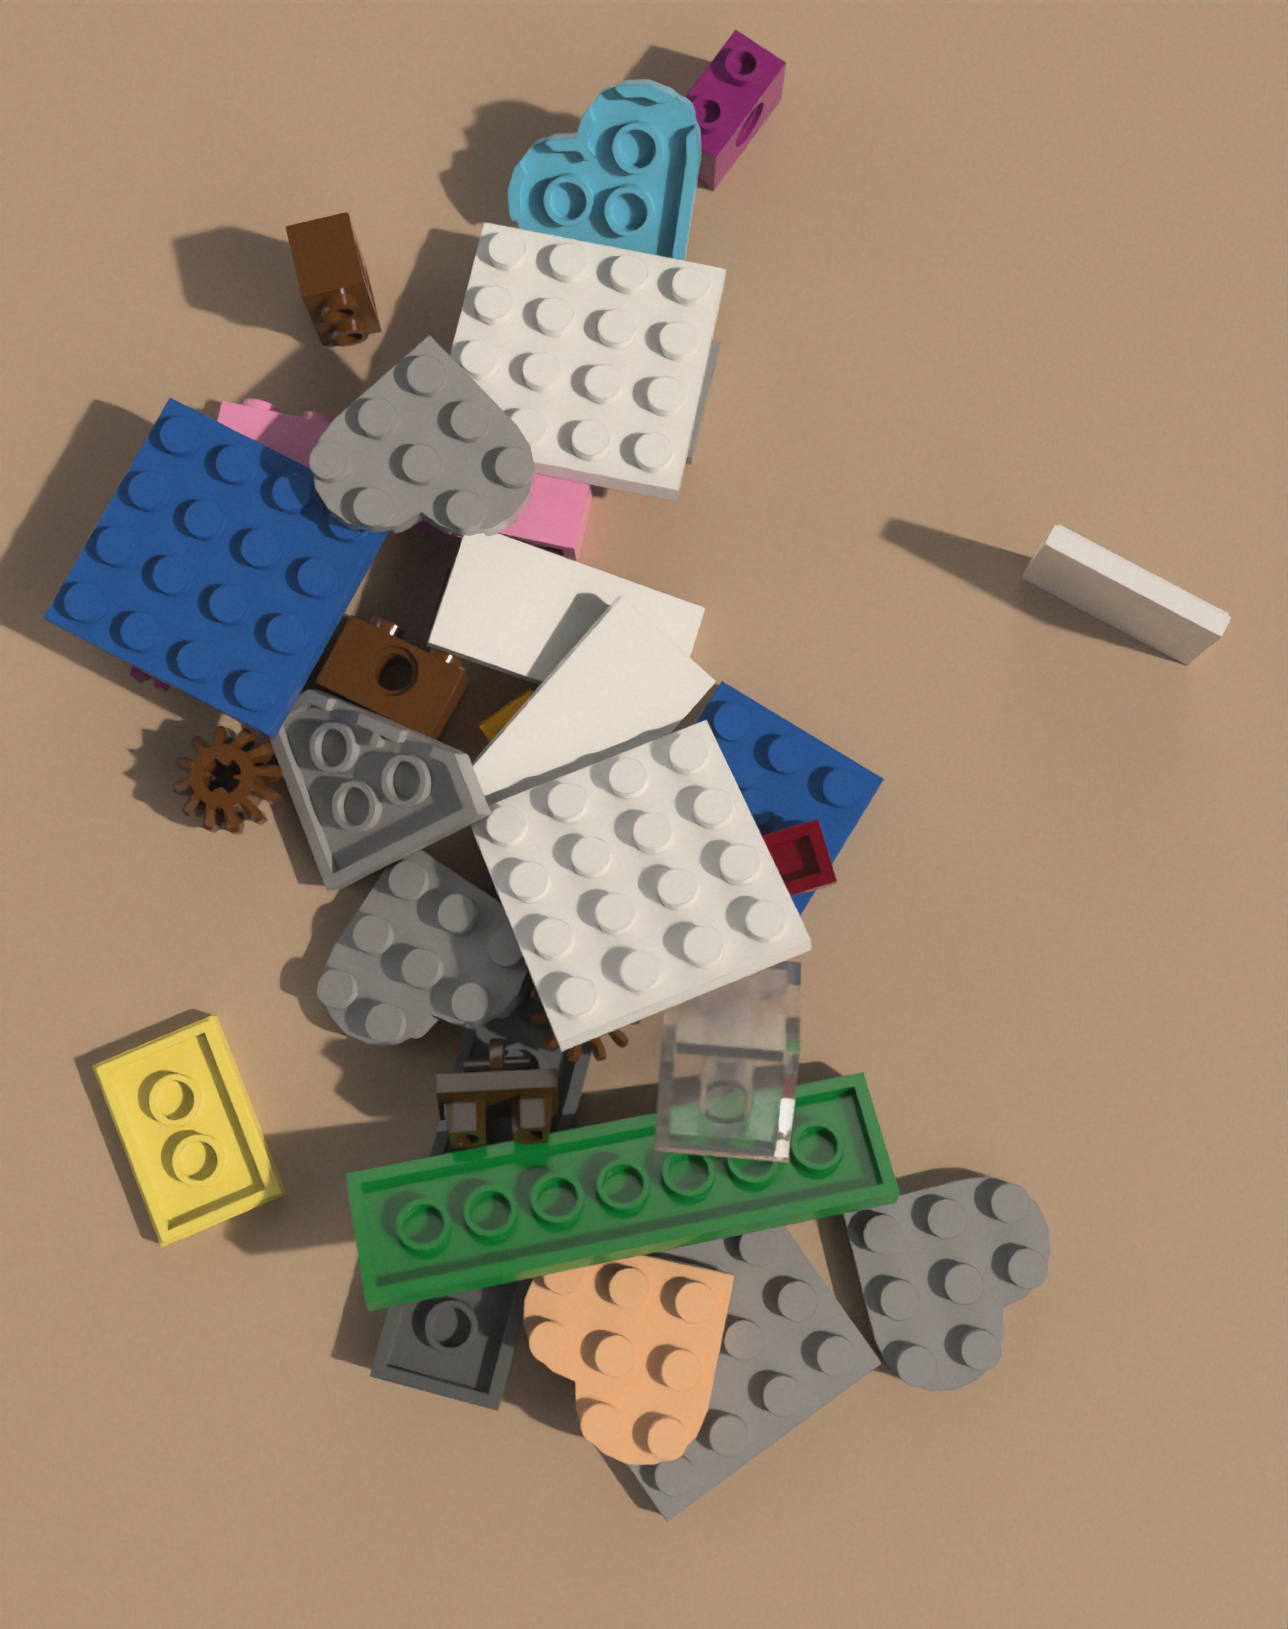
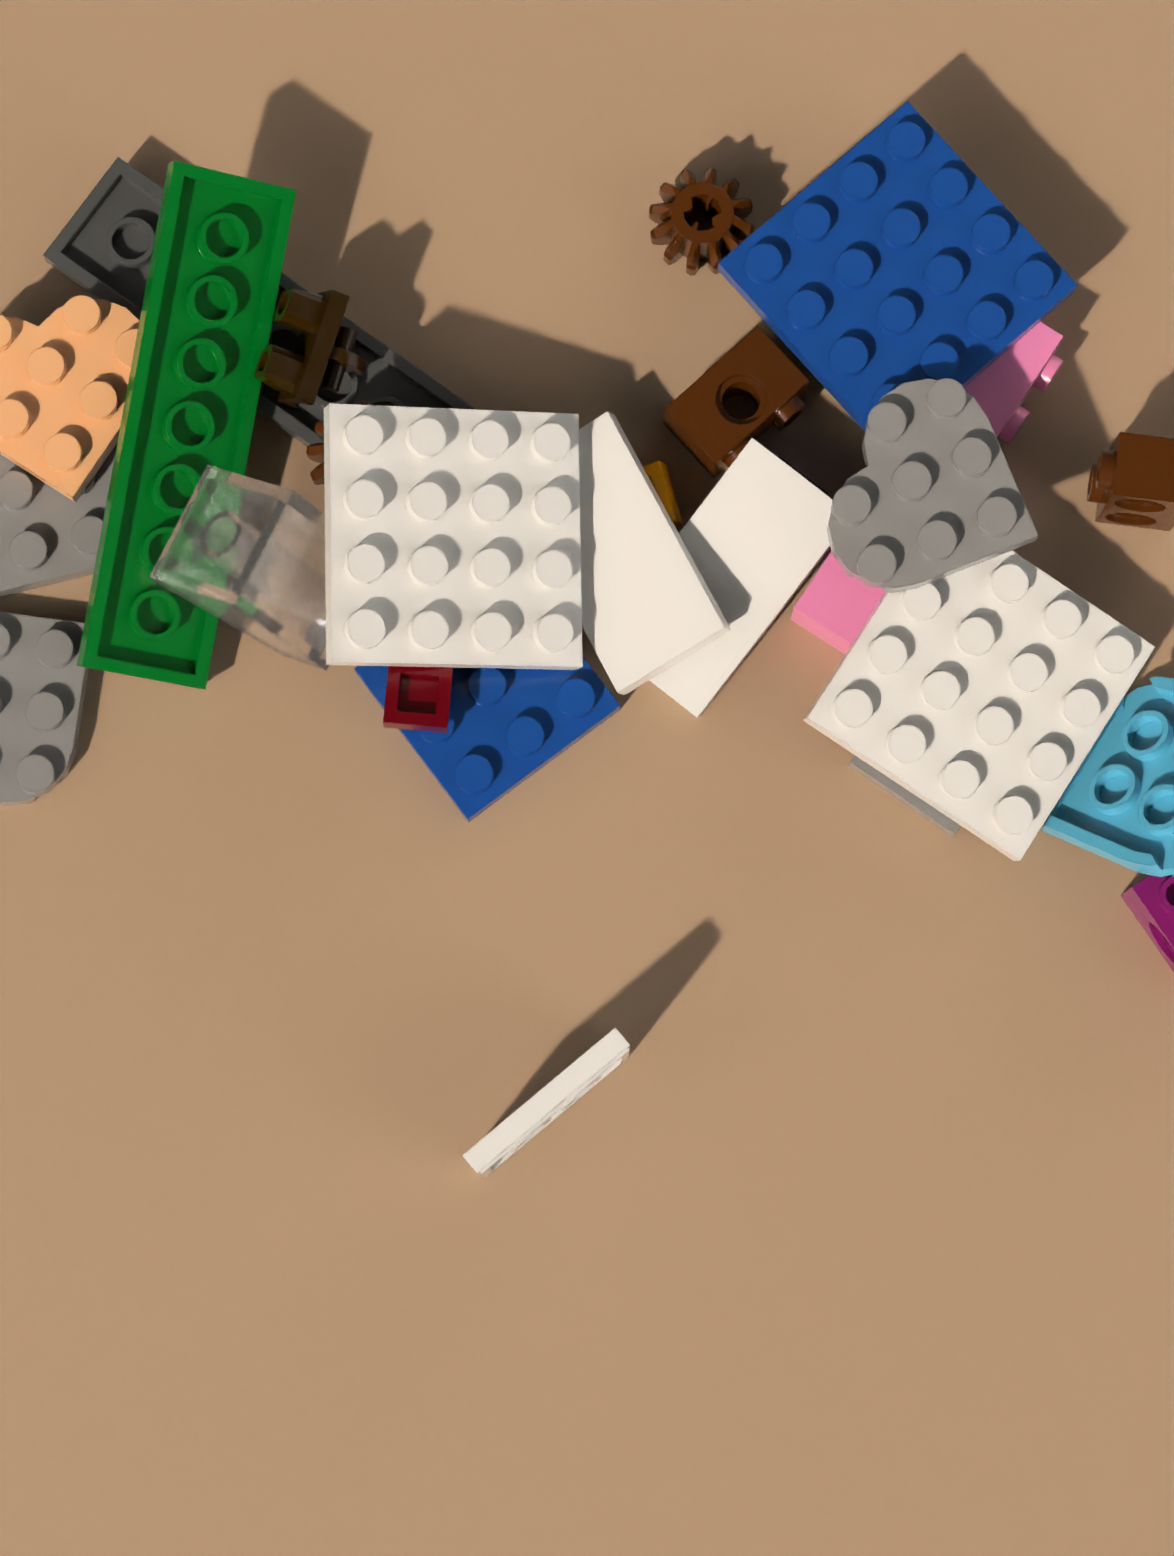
camera: 110 degrees right, 0 degrees up
(189, 1130) = (398, 80): light yellow tile -> none
(370, 786) = (643, 341): light grey plate -> none
(423, 953) = (471, 332): light grey plate -> none

